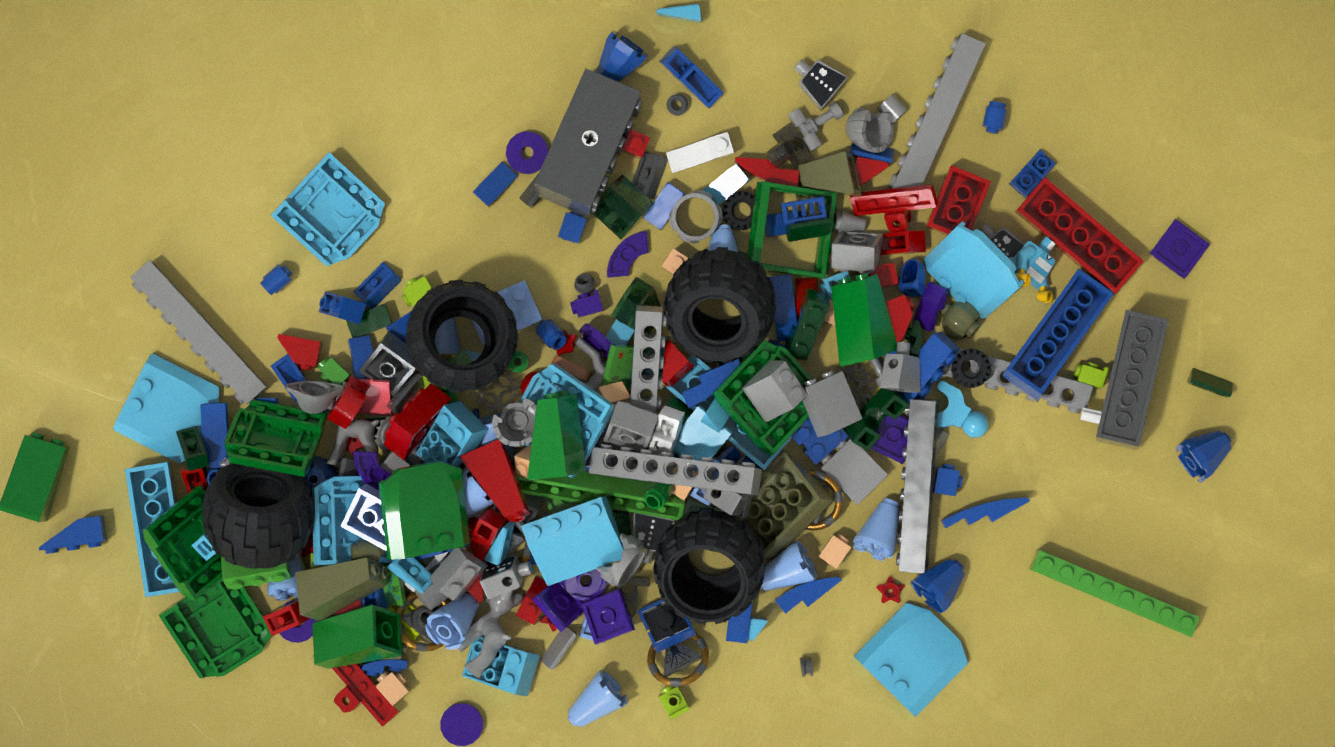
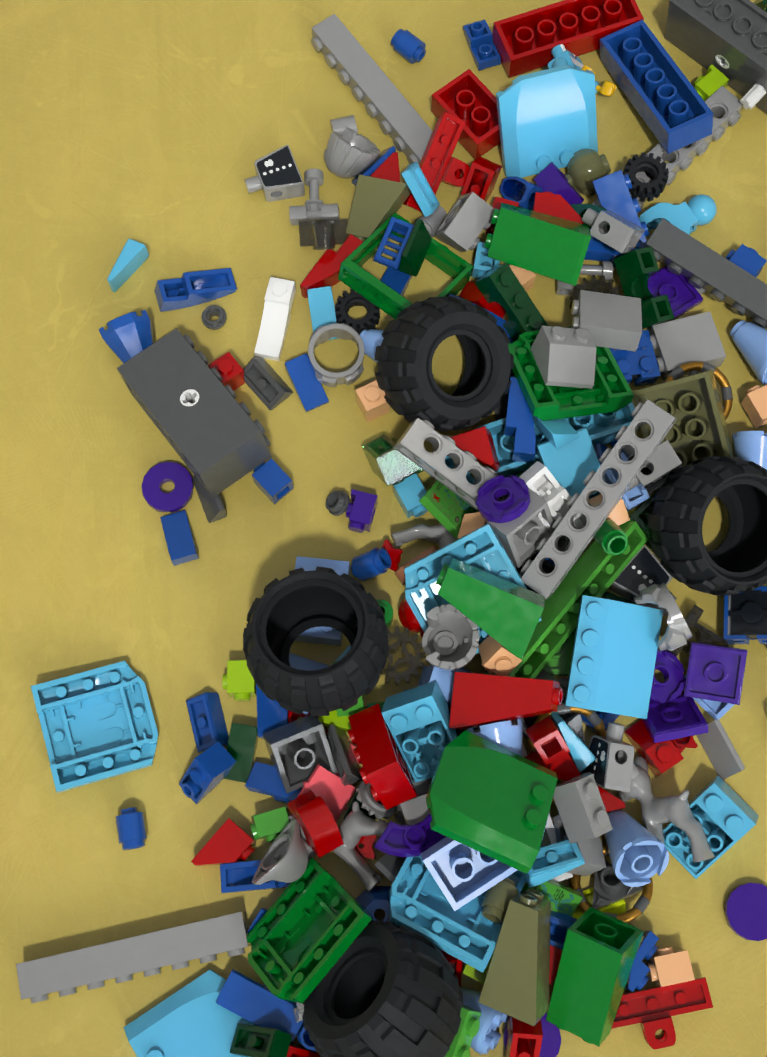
camera: 60 degrees left, 15 degrees down
(595, 338) = (404, 516): dark purple tile -> none
(622, 206) = (283, 421): clear green slope -> none
(626, 253) = (332, 448): dark purple tile -> none
(636, 415) = (504, 510): none -> dark purple tile
(862, 203) = (420, 189): none -> medium azure tile

